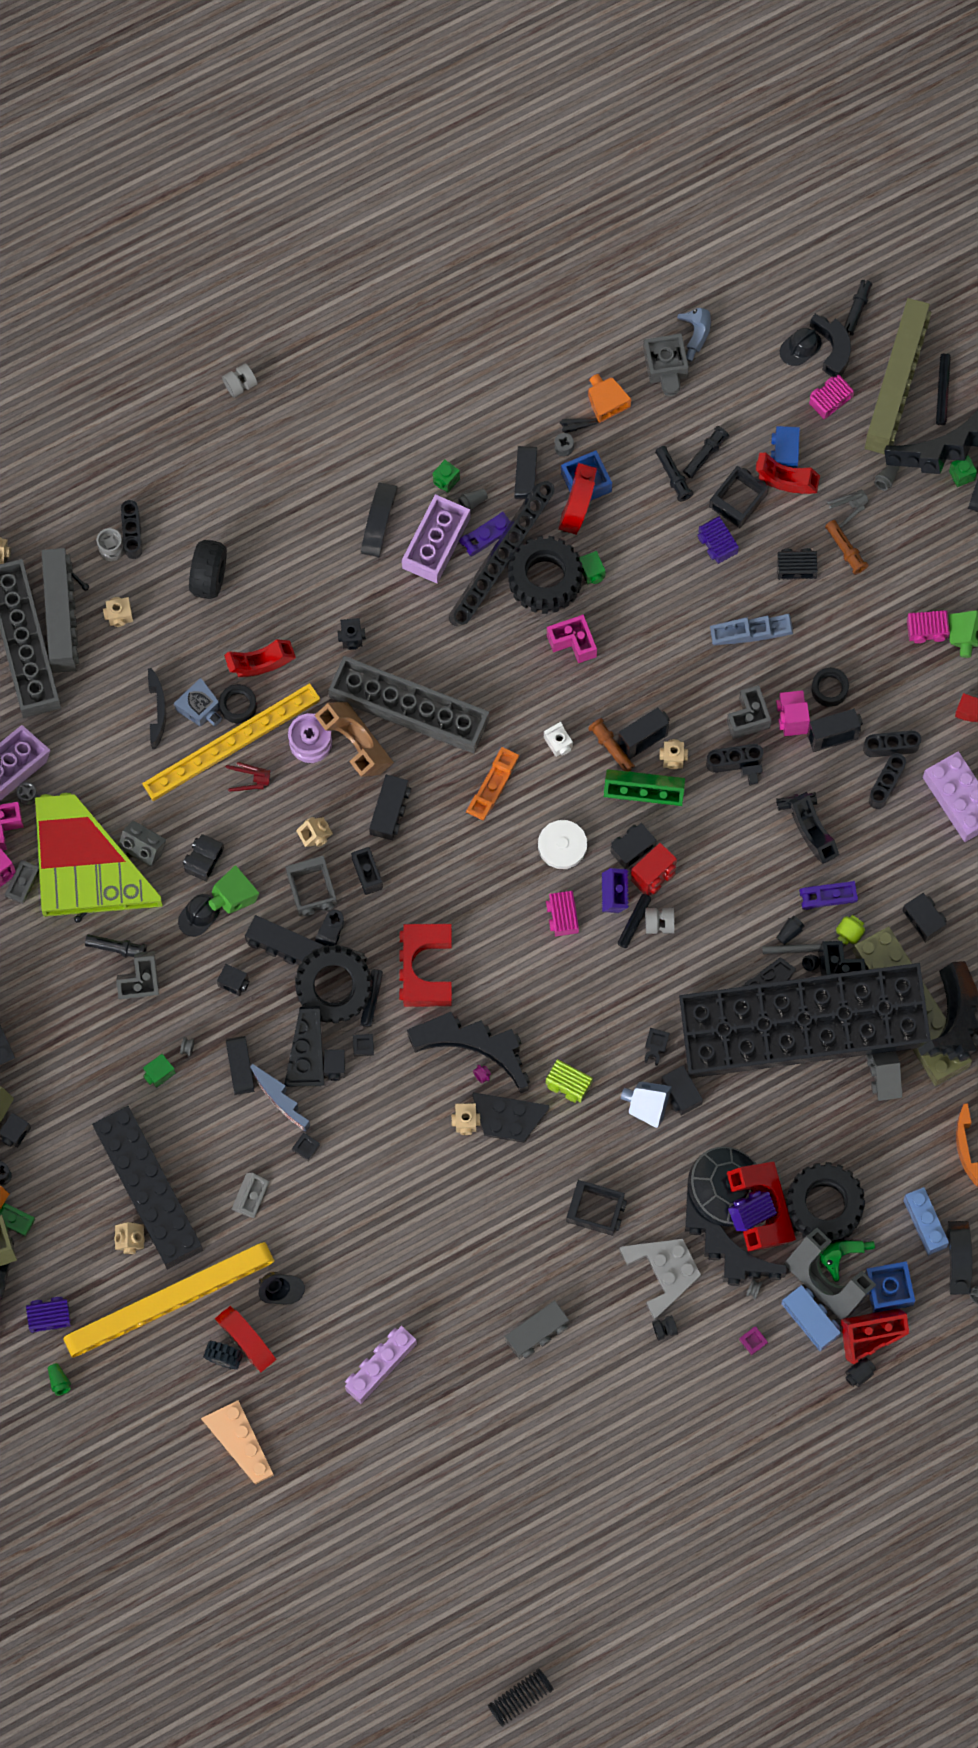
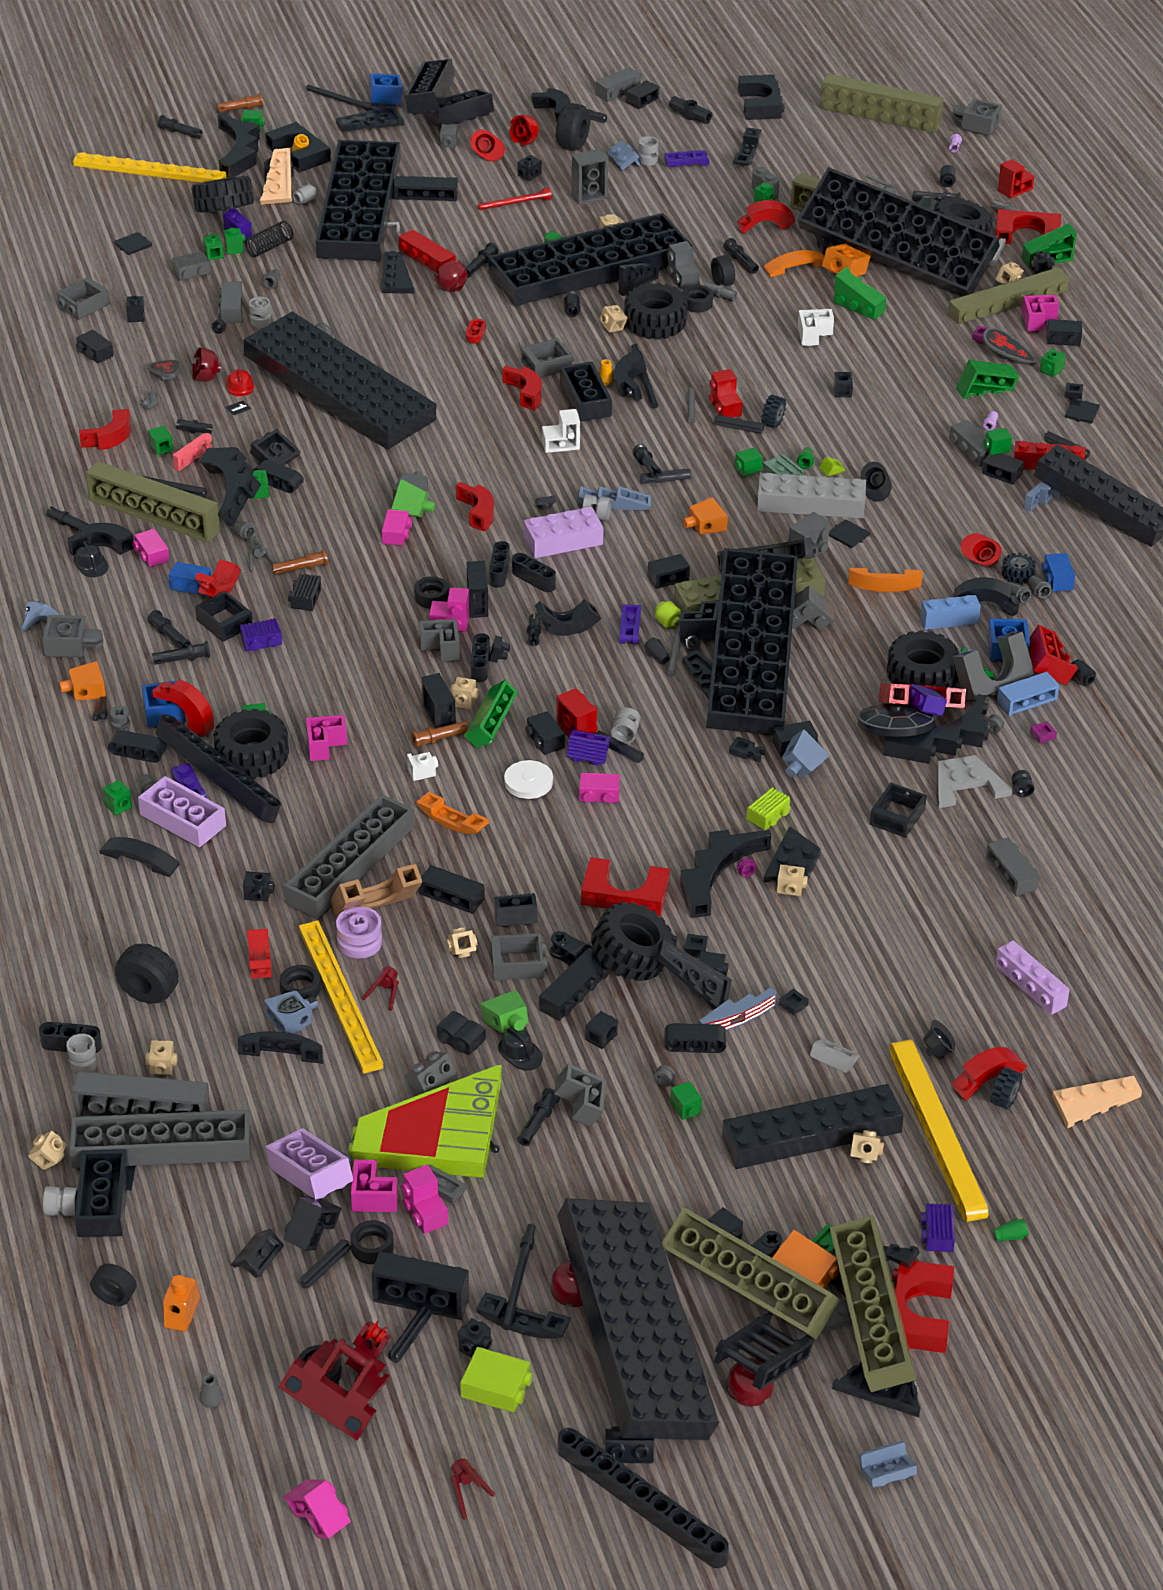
camera: 80 degrees left, 30 degrees down
(751, 630) = (357, 629): sand blue slope -> none

